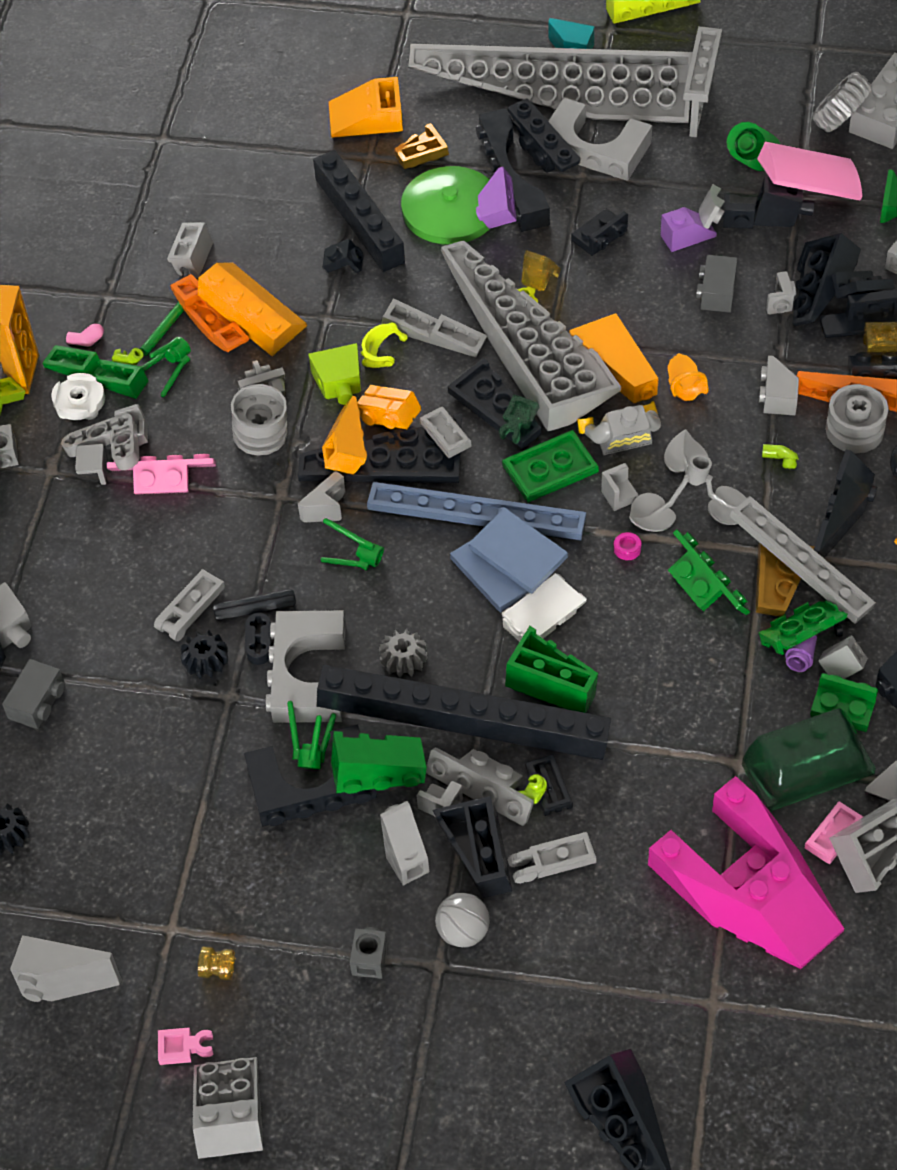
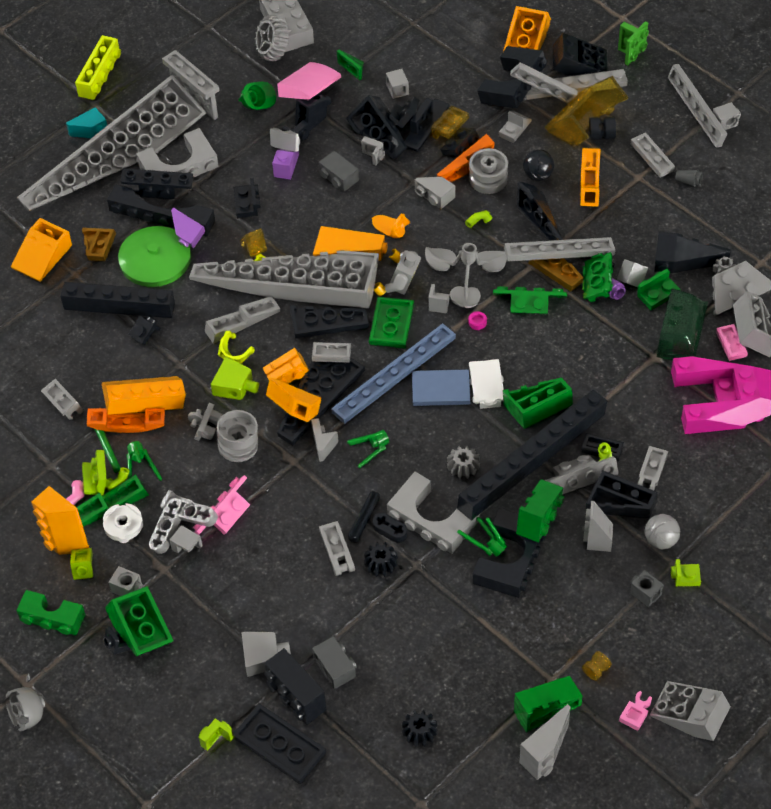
camera: 55 degrees left, 0 degrees up
(116, 335) = (94, 474): none -> lime bracket
(131, 941) = (541, 703): none -> green wedge
(427, 986) = (686, 574): none -> lime bracket
(438, 797) = (575, 501): light grey panel -> none
(517, 415) = (352, 311): clear green plate -> none
(518, 550) = (442, 368): sand blue tile -> none

